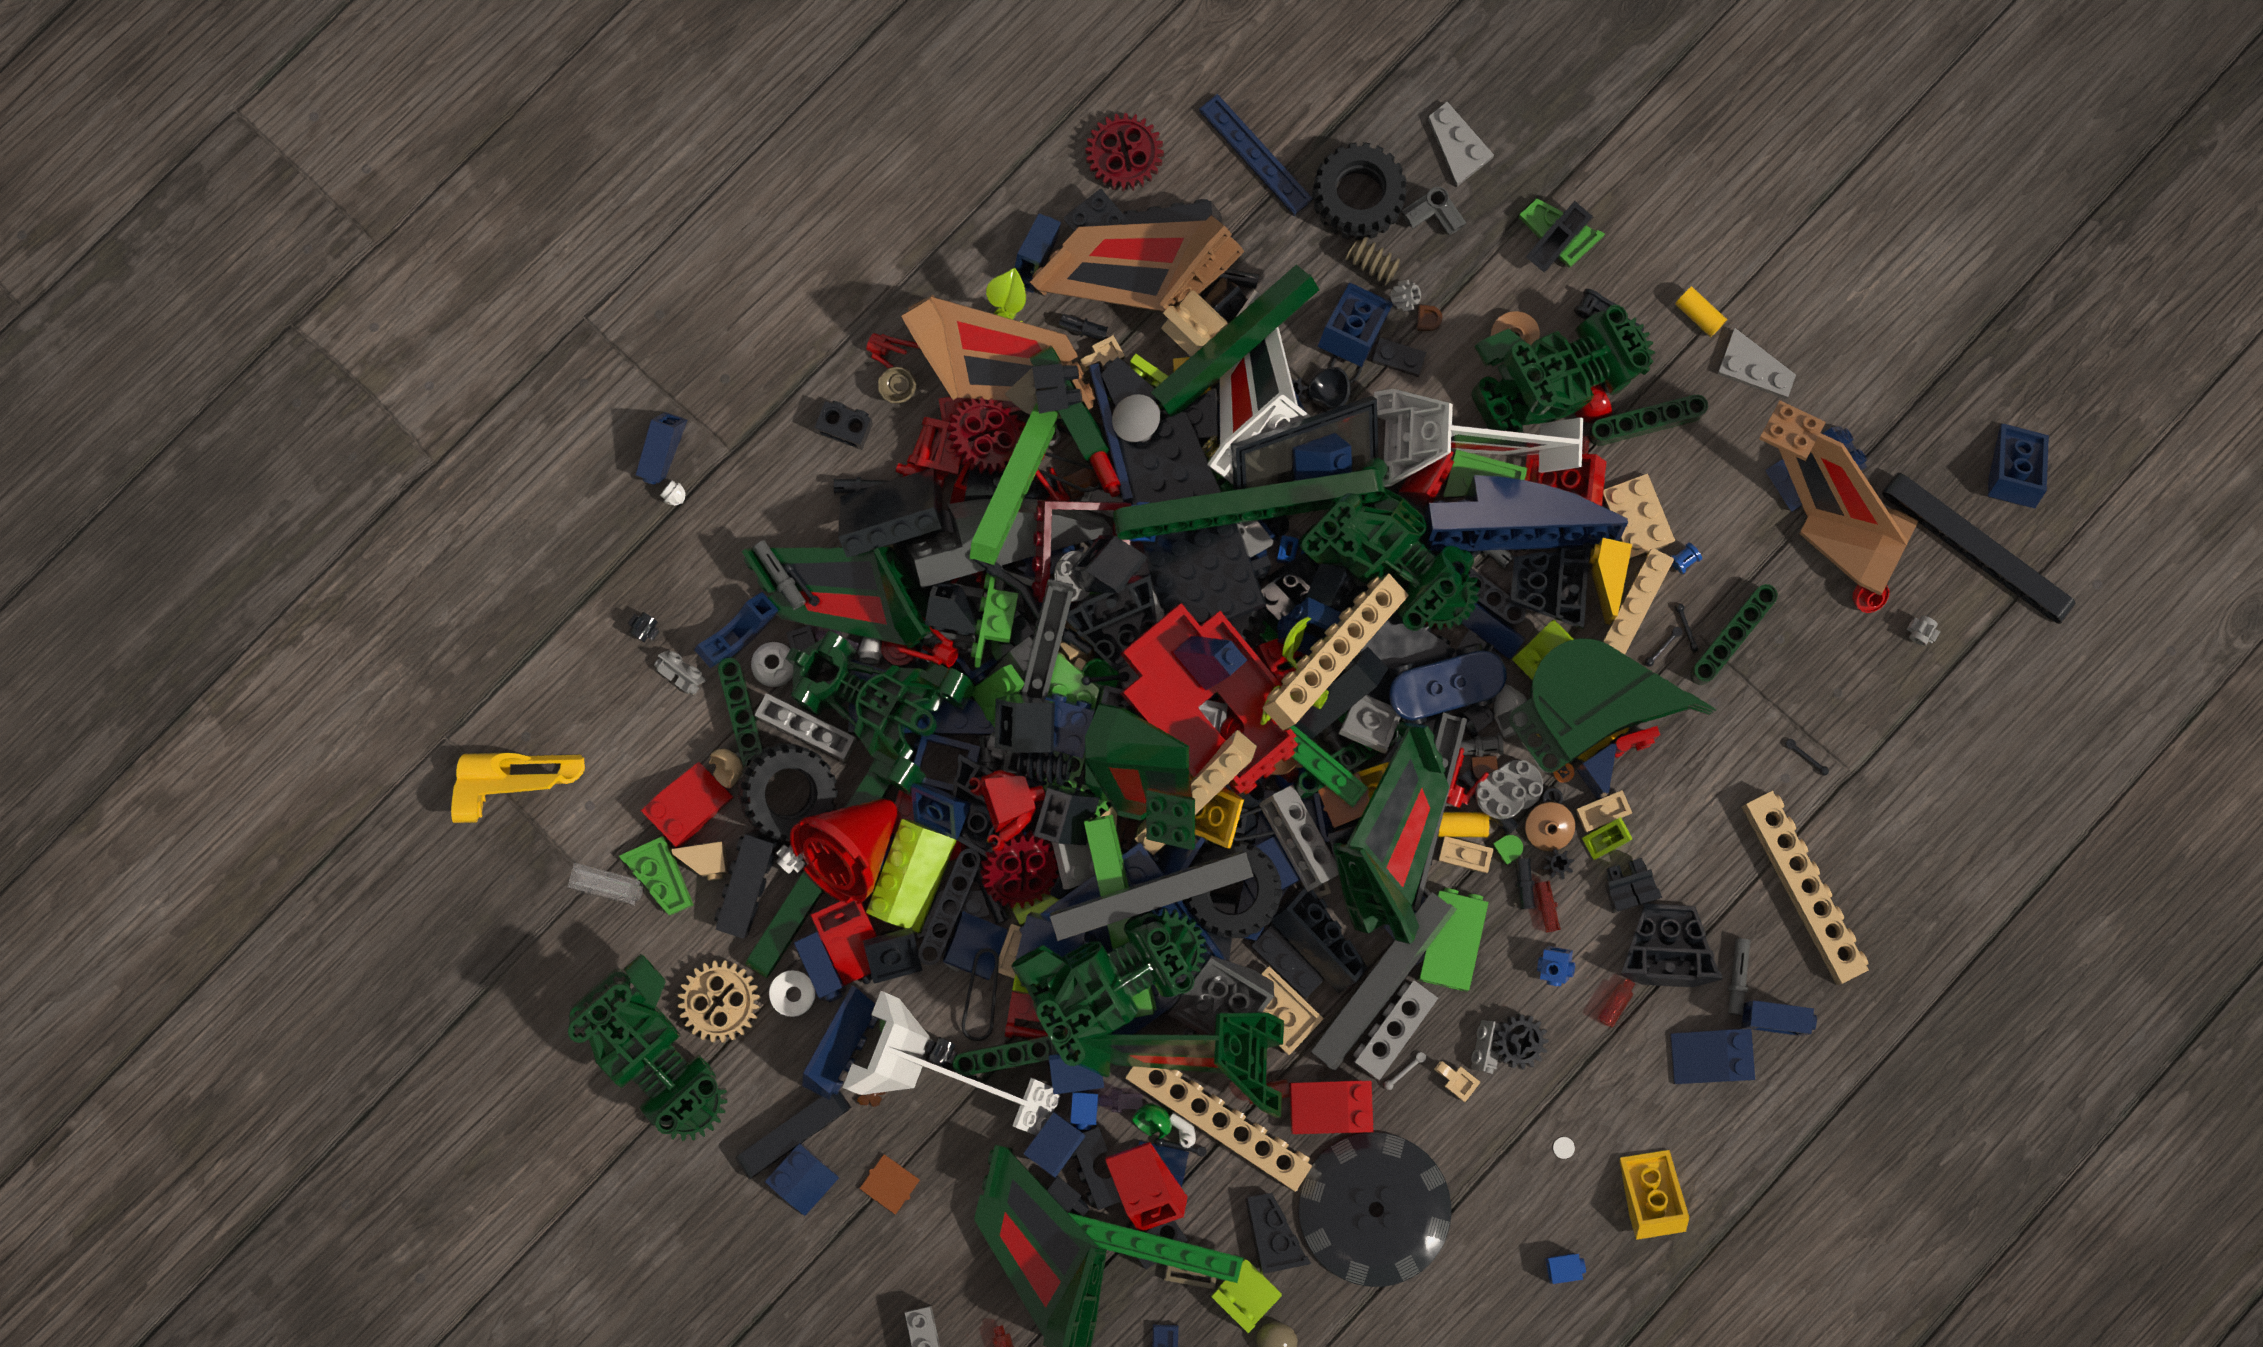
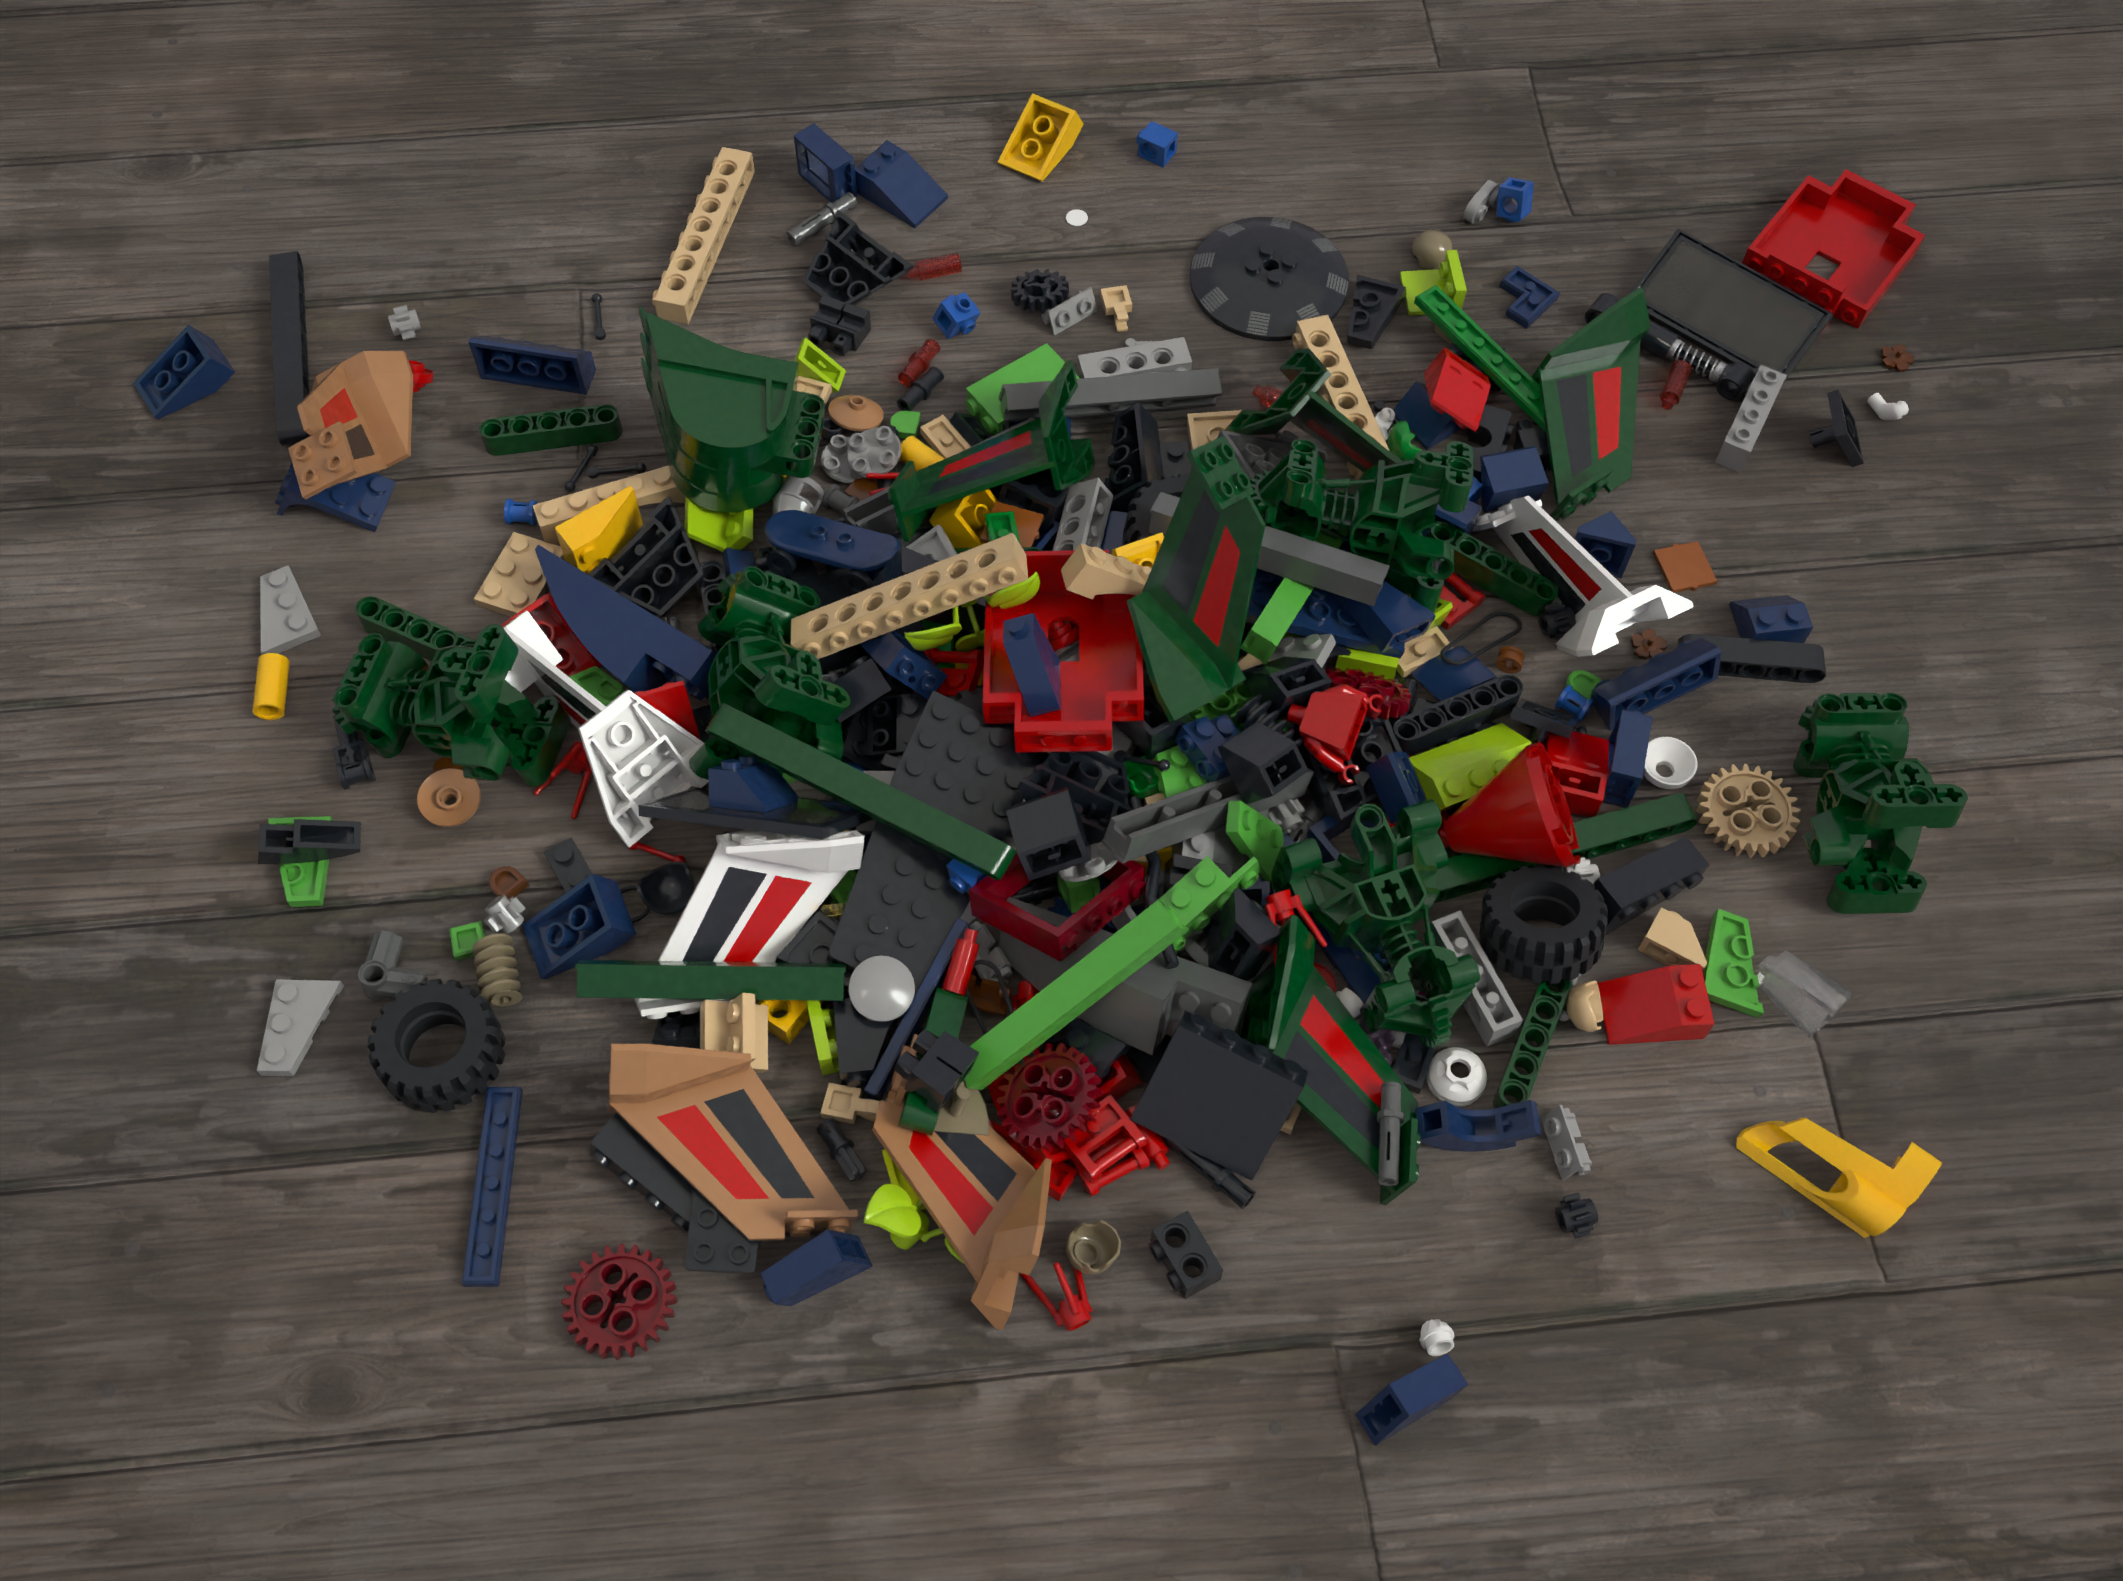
camera: 140 degrees left, 20 degrees down
(814, 600) = (1371, 1080): black hinge -> none
(875, 991) = (1569, 694): none -> blue bush
(950, 995) = (1510, 659): none -> dark orange bush
(954, 1137) = (1607, 542): none -> dark blue slope
(1331, 1107) = (1239, 348): red slope -> none
(1413, 268) = (464, 938): none -> bright green tile
(1451, 876) = (969, 428): none -> black plate
(1468, 419) = (575, 762): none -> red plant
(1555, 870) = (878, 381): black gear -> none
(1801, 674) = (533, 364): none -> dark blue slope

